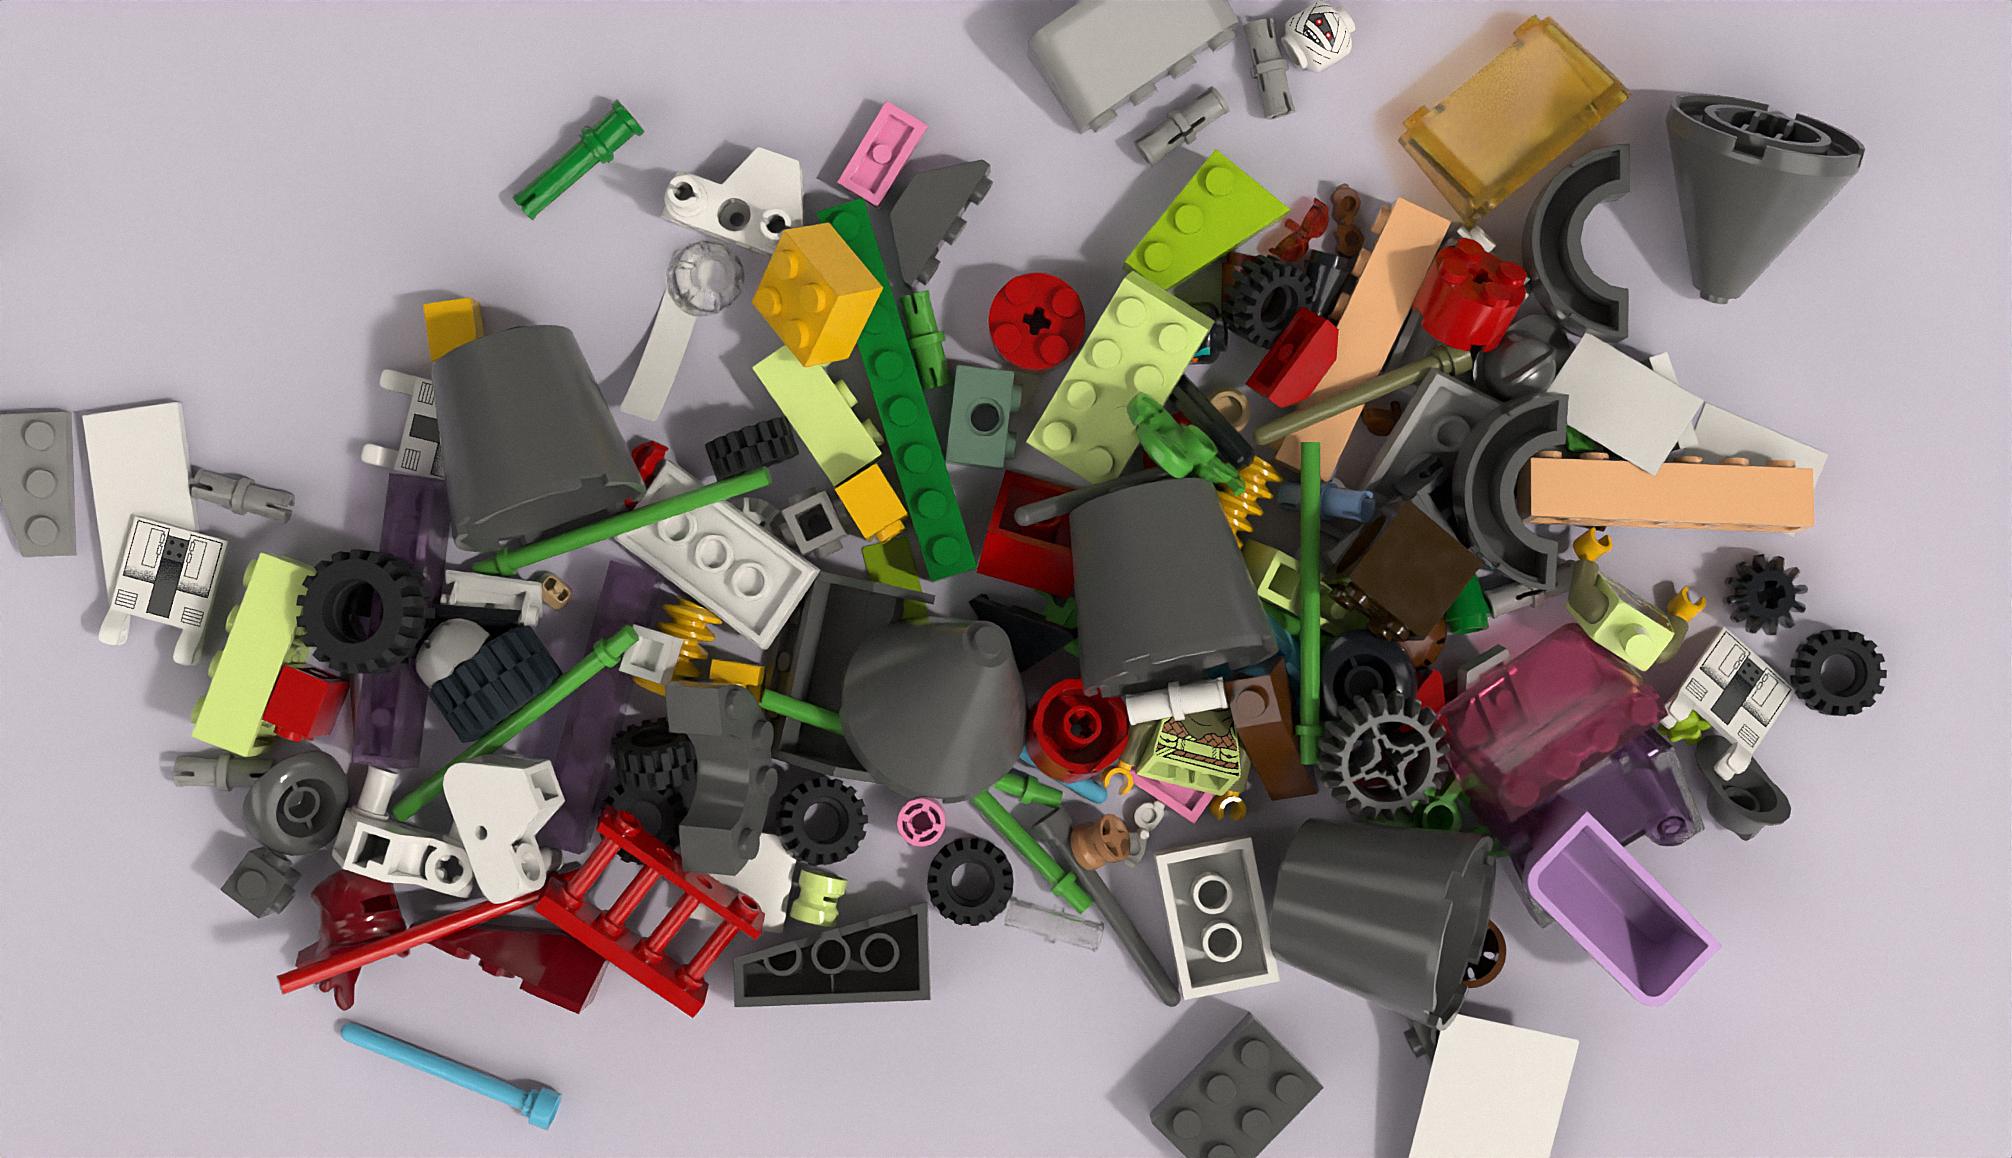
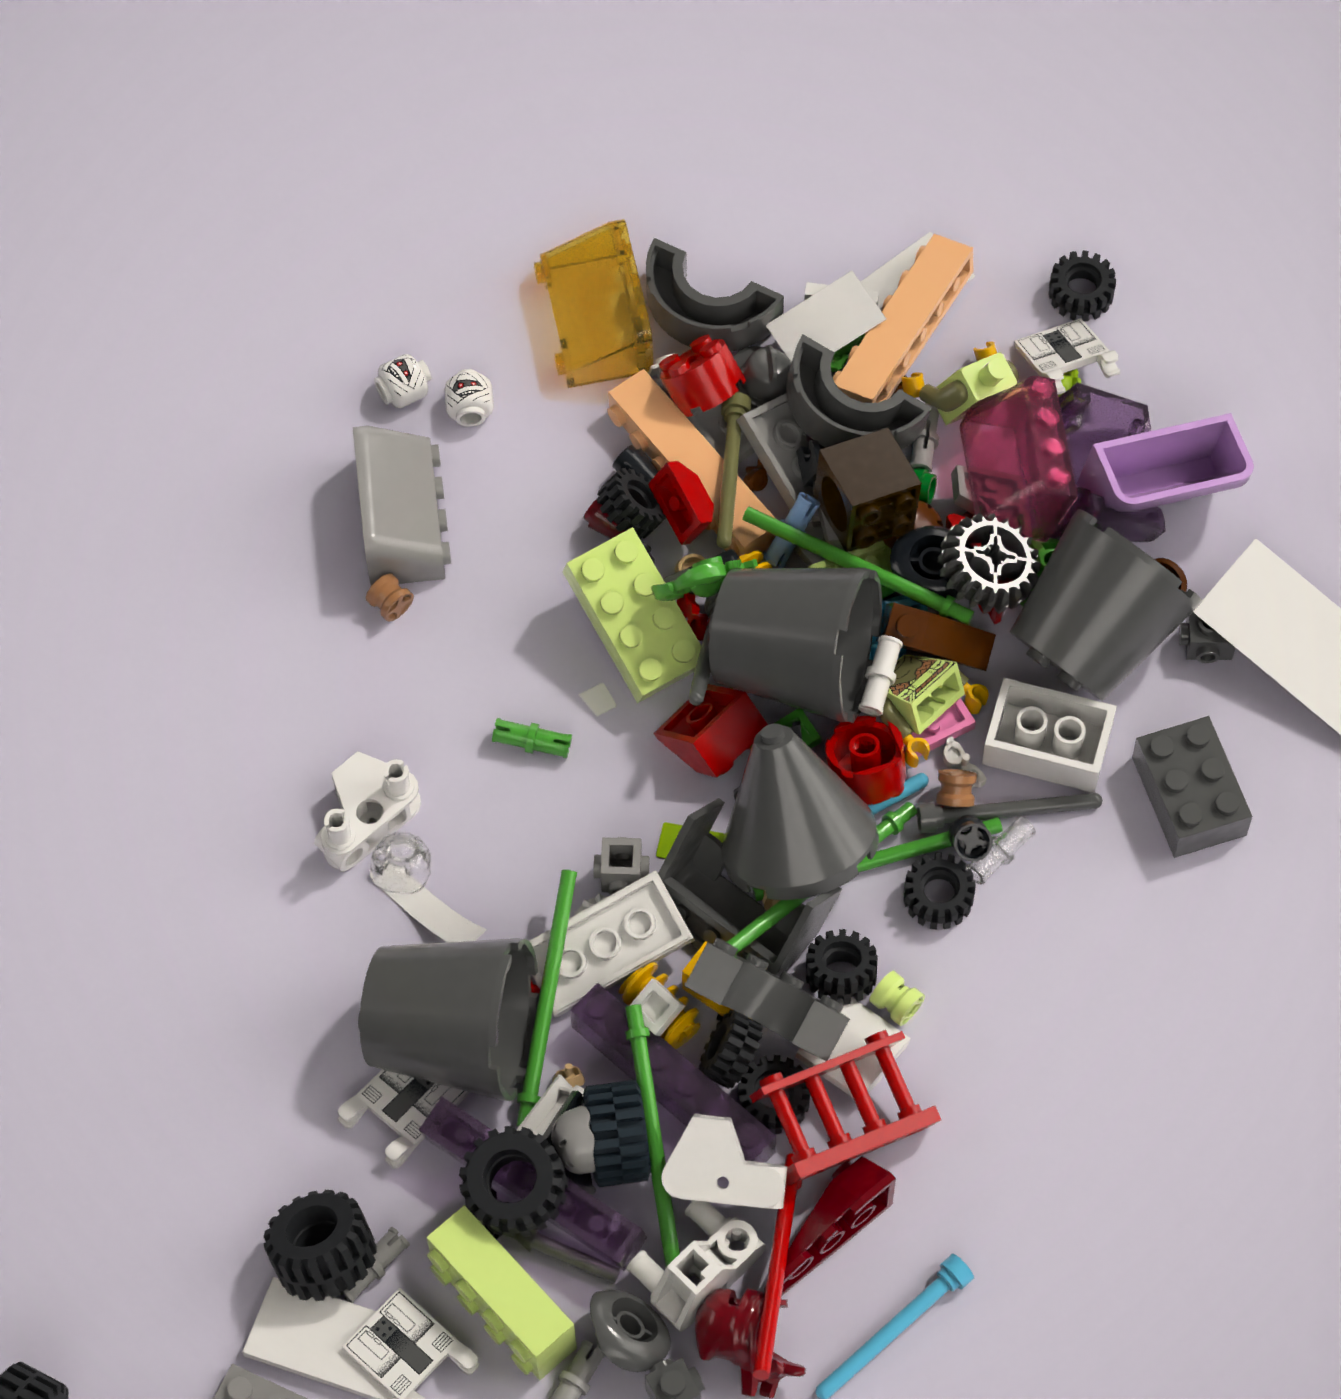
camera: 60 degrees left, 25 degrees down
(225, 403) = (320, 1245): none -> black tyre
(306, 702) = (557, 1275): red brick -> none
(452, 325) = (337, 1050): yellow brick -> none
(596, 145) = (263, 890): green pin -> none
(752, 448) = (542, 880): black tyre -> none
(816, 294) = (460, 775): yellow brick -> none
(821, 415) = (541, 829): yellowish green brick -> none
(849, 964) = (958, 996): dark grey wedge -> none
(874, 505) = (632, 812): yellow brick -> none
(882, 154) = (384, 705): bright pink plate -> none
(905, 410) = (556, 769): green brick -> none
(924, 814) = (877, 910): bright pink wheel -> none
(932, 213) = (447, 693): dark grey slope -> none
(974, 389) = (617, 744): sand green brick -> none
(1015, 87) = (389, 597): none -> medium nougat wheel
(1021, 300) = (562, 658): red brick -> none
(1041, 890) = (974, 844): none -> black wheel
(1181, 126) = (478, 509): light grey pin -> none
(1204, 223) = (552, 518): lime wedge -> none
(1269, 68) = (472, 438): light grey pin -> none
(1297, 243) = (598, 470): clear red piece -> none
(1345, 207) = (598, 440): reddish brown piece -> none
(1744, 801) = (1139, 377): dark grey piece -> none
(1749, 184) = (726, 186): dark grey cone -> none
(1773, 610) = (1005, 303): black gear -> none

